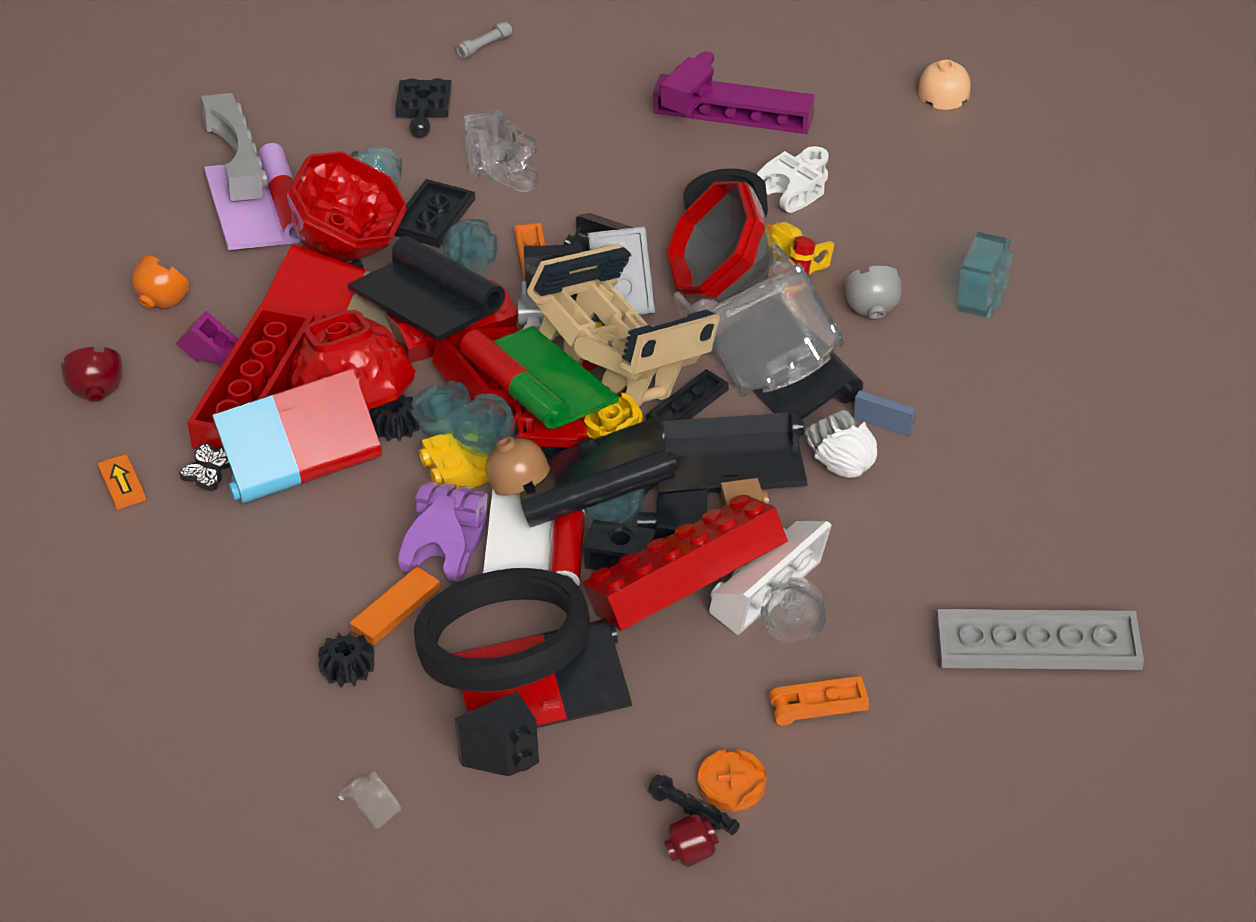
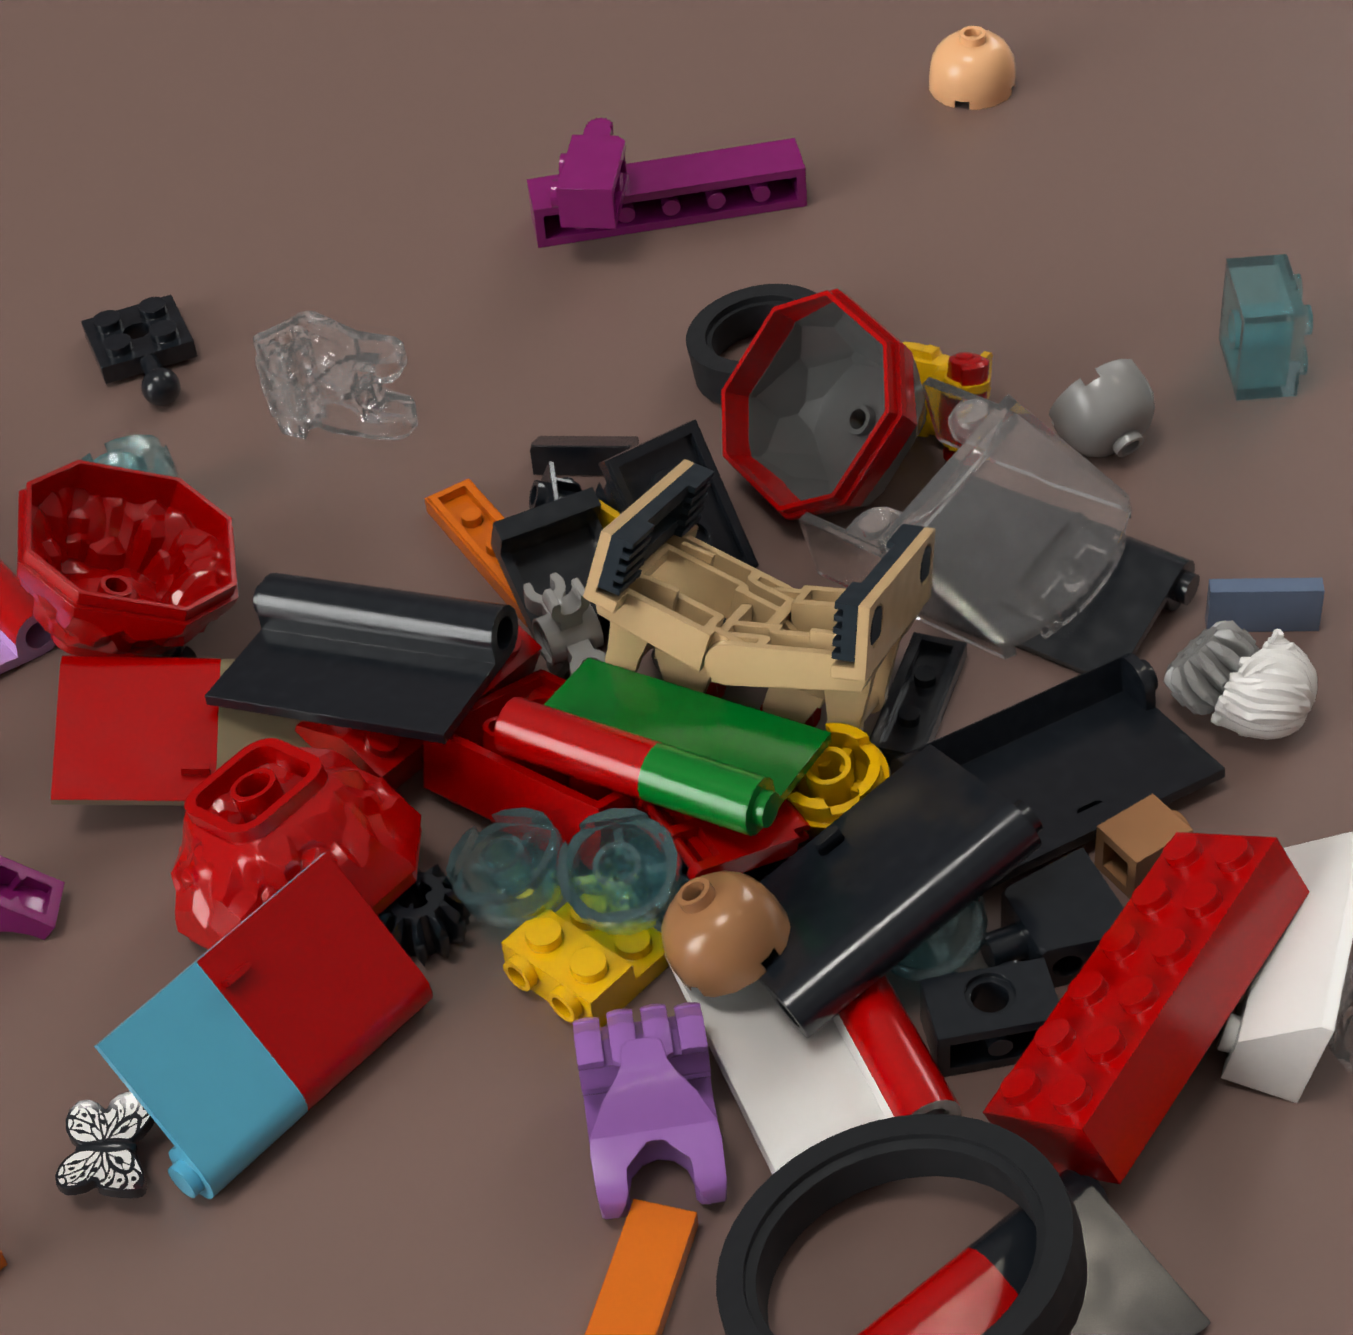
camera: 20 degrees left, 0 degrees up
(252, 370) = (104, 930): red brick -> none
(434, 211) = (272, 517): black tile -> none
(468, 48) = (170, 236): light grey bar -> none
(471, 244) = (375, 549): clear light blue cylinder -> none
(797, 177) = (850, 263): white piece -> none

